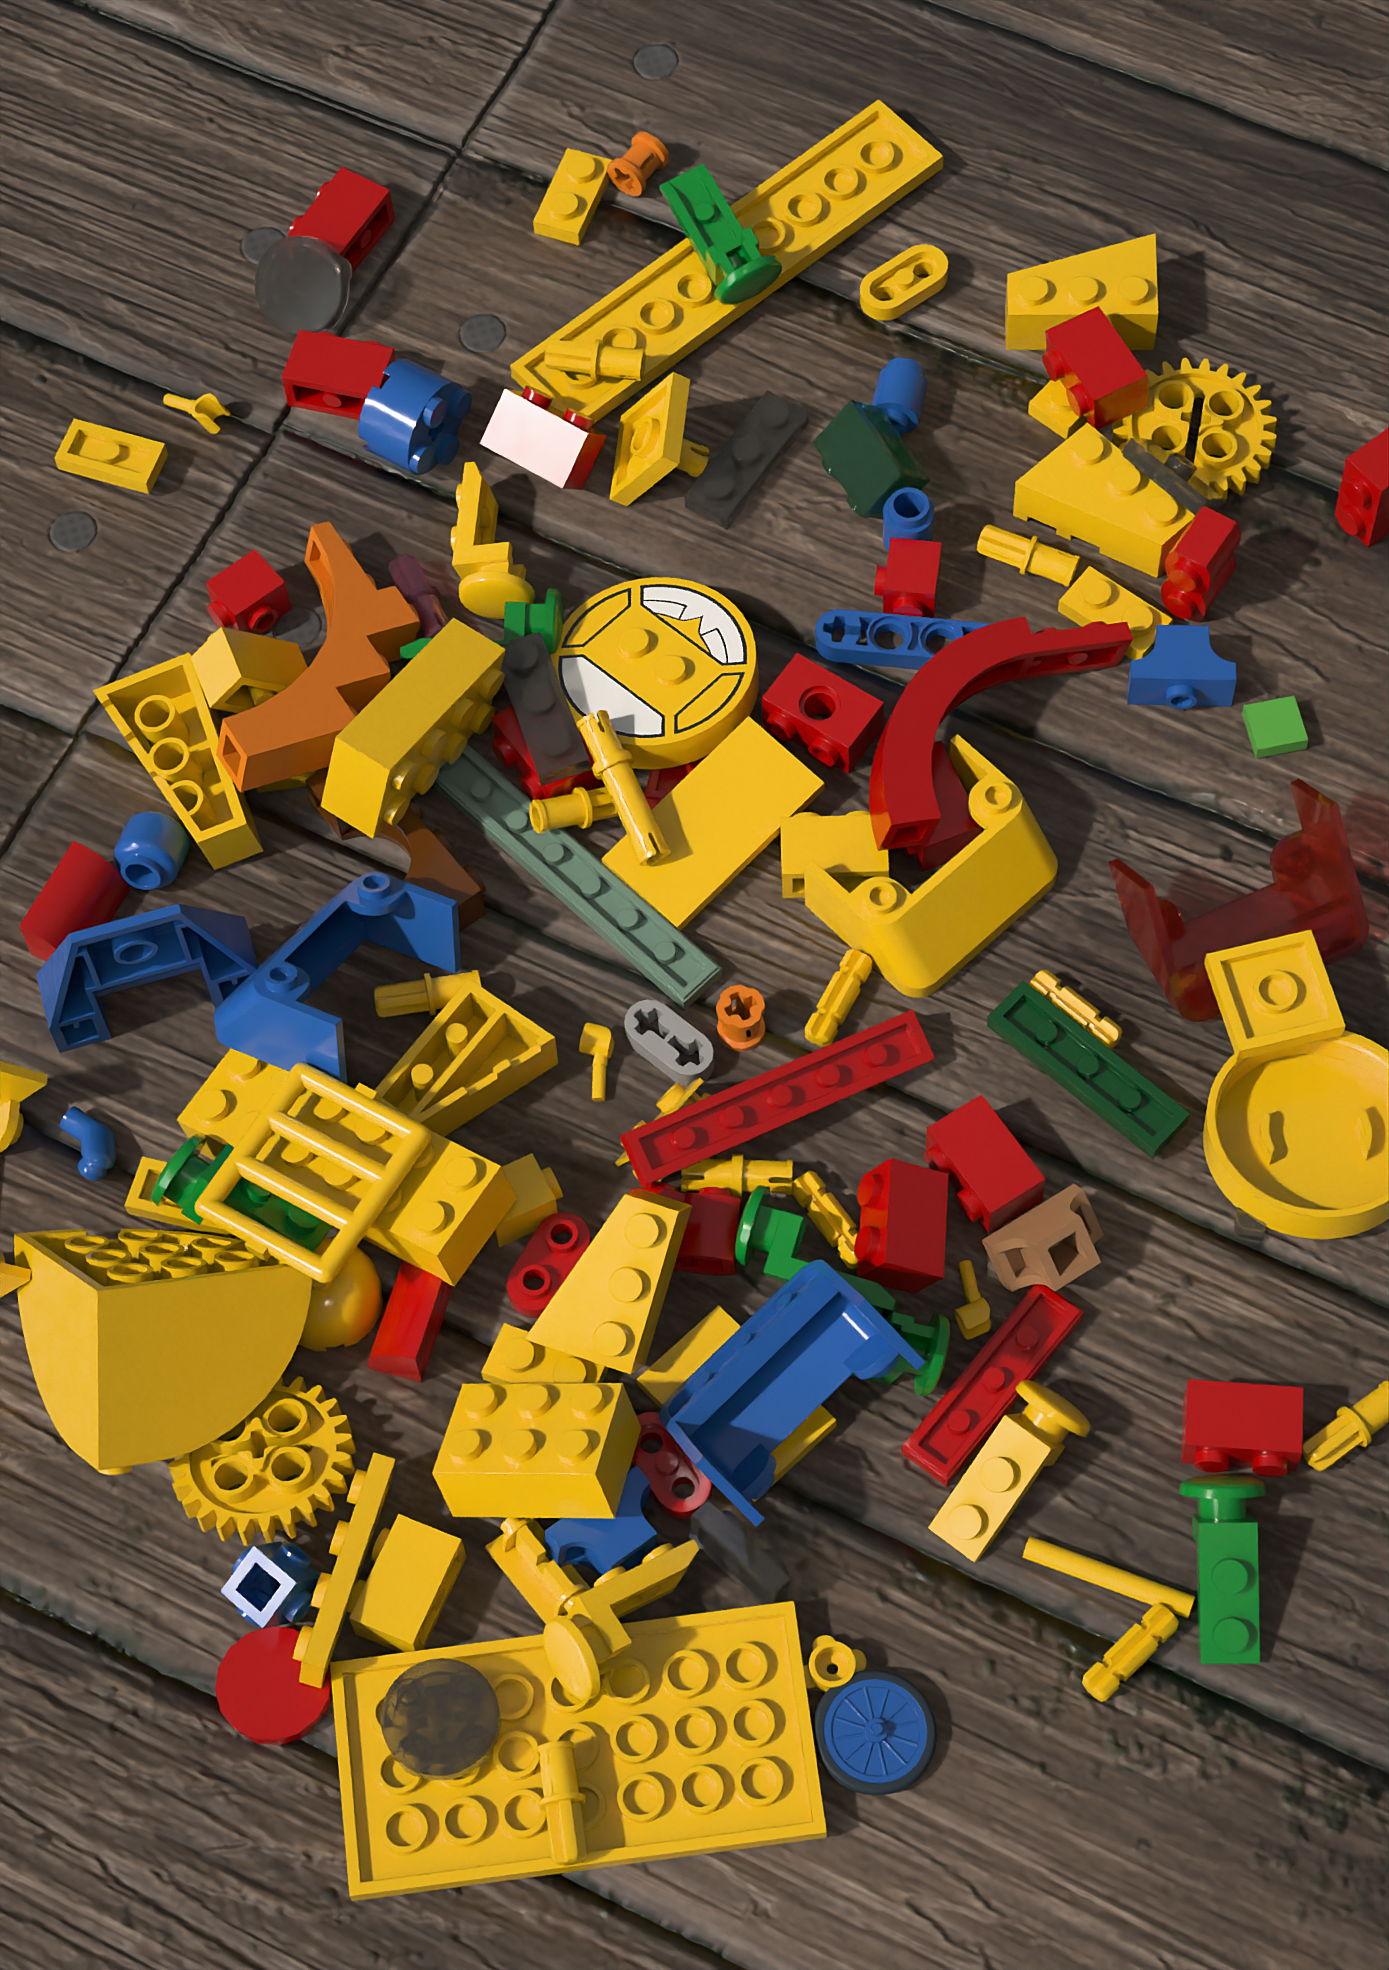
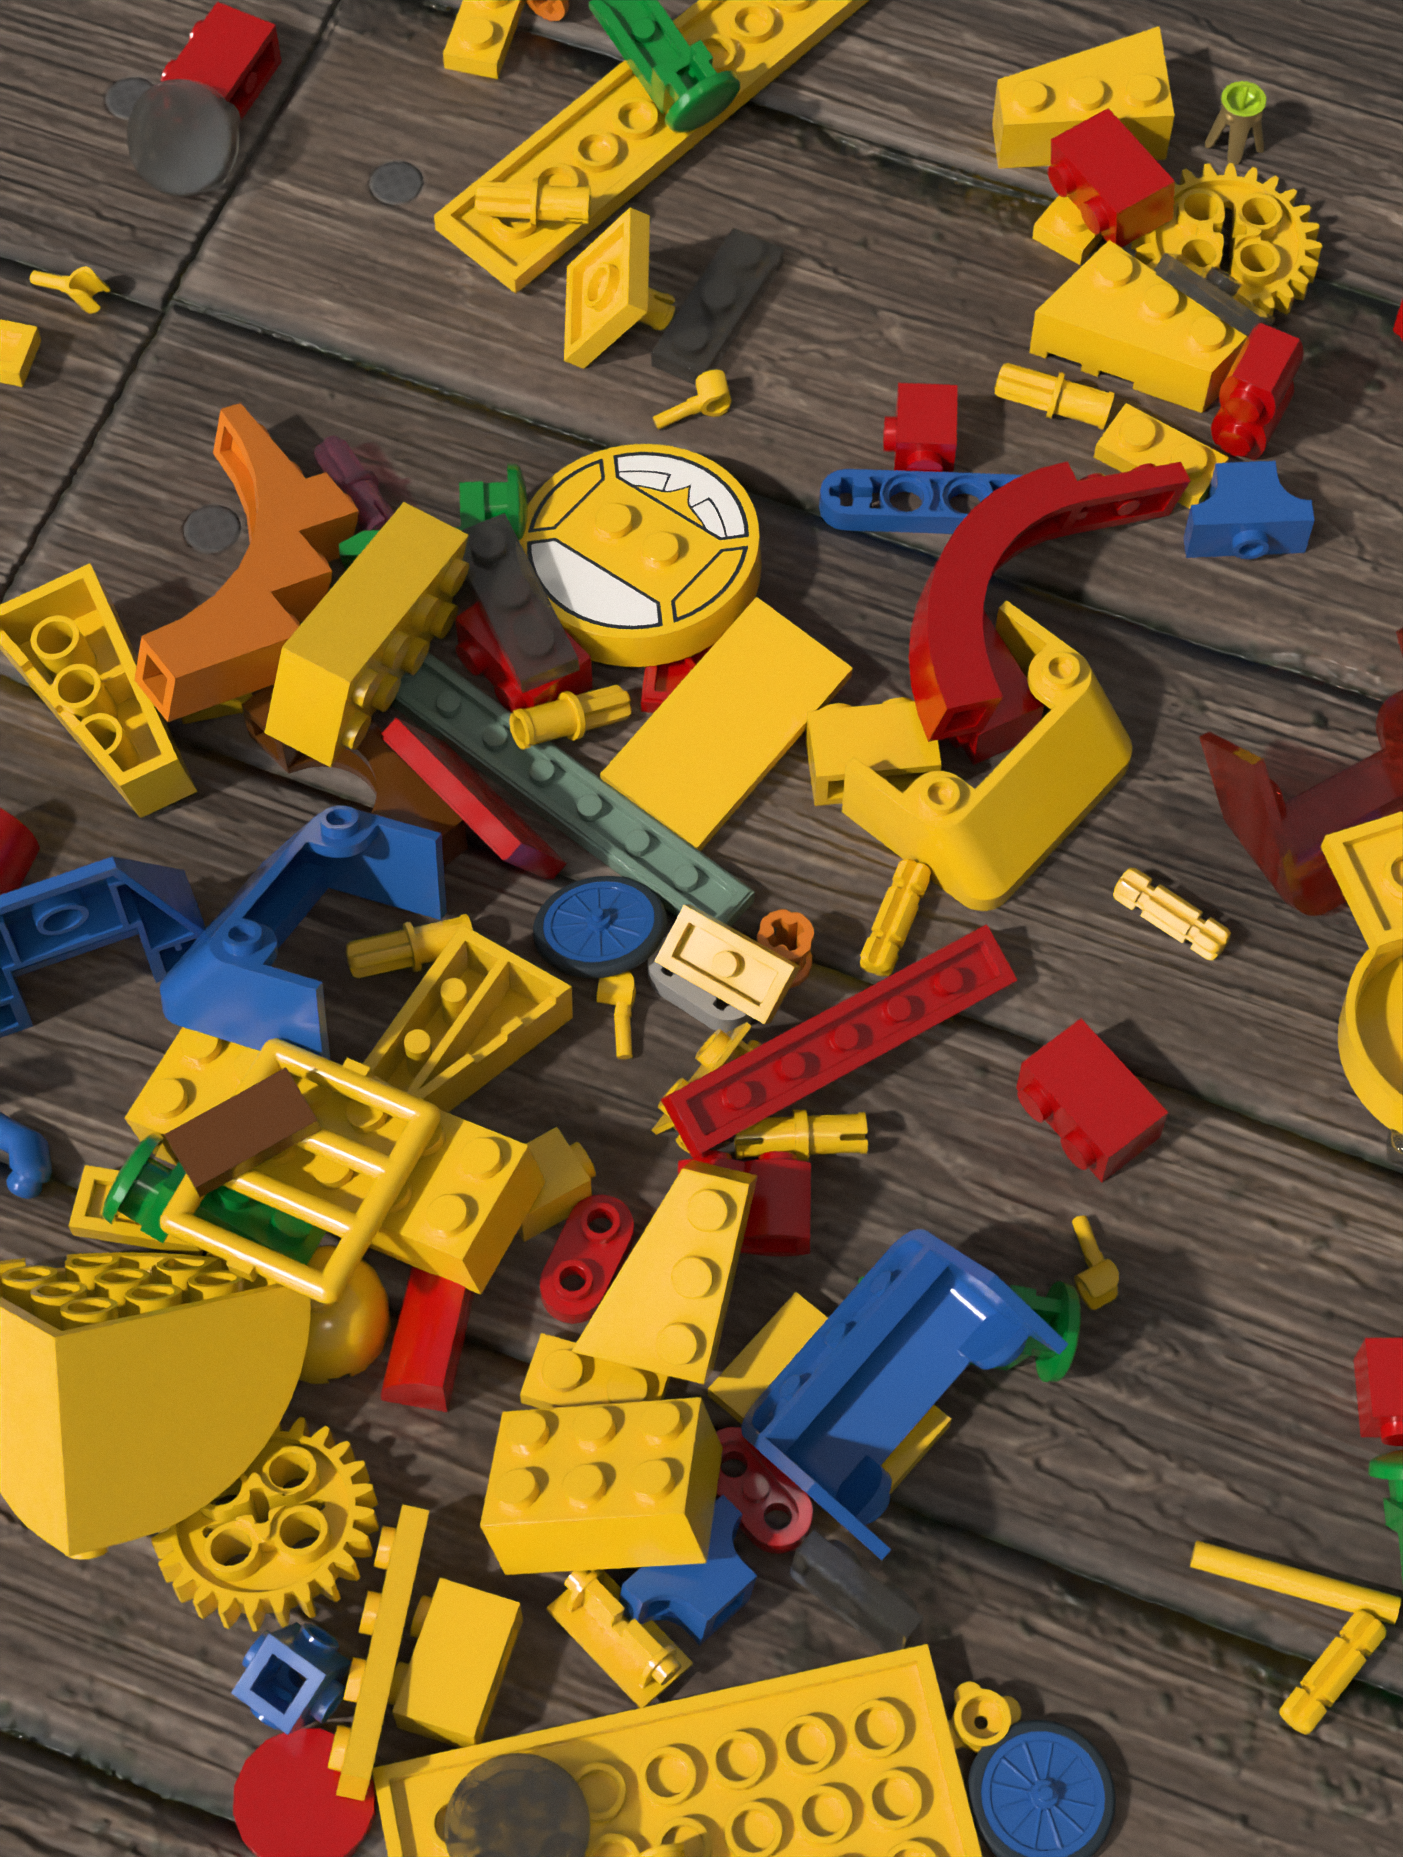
camera: 10 degrees left, 0 degrees up
(151, 850) = (63, 799): blue head -> none
(245, 668) = (158, 578): yellow brick -> none
(247, 595) = (151, 496): red brick -> none
(267, 1137) = (243, 1132): none -> reddish brown tile
(334, 372) = (236, 239): red brick -> none
(414, 417) = (329, 279): blue brick -> none
(482, 565) = (427, 445): yellow piece -> none
(491, 874) = (473, 799): none -> red tile
(544, 438) = (483, 295): brick -> none
(587, 988) = (599, 927): none -> blue wheel
(591, 1635) = (690, 1706): yellow piece -> none
(615, 769) = (608, 666): yellow pin -> none
(688, 1027) = (727, 964): none -> yellow plate
(733, 540) = (712, 400): none -> yellow hand
(782, 1237) = (861, 1202): green piece -> none
(811, 690) = (825, 563): red brick -> none
(827, 1215) = (918, 1179): yellow axle -> none
(868, 458) = (863, 299): clear green brick -> none
(899, 282) = (871, 100): yellow plate -> none
(901, 393) = (886, 225): blue brick -> none
(902, 1225) = (1005, 1181): red brick -> none
(908, 516) = (914, 357): blue brick -> none
(988, 1384) = (1128, 1360): red tile -> none
(1007, 1469) = (1161, 1463): yellow piece -> none
(1047, 1243) = (1176, 1189): medium nougat brick -> none
(1088, 1069) = (1197, 980): dark green plate -> none
(1219, 312) = (1240, 110): none -> piece
(1275, 727) = (1359, 572): bright green tile -> none

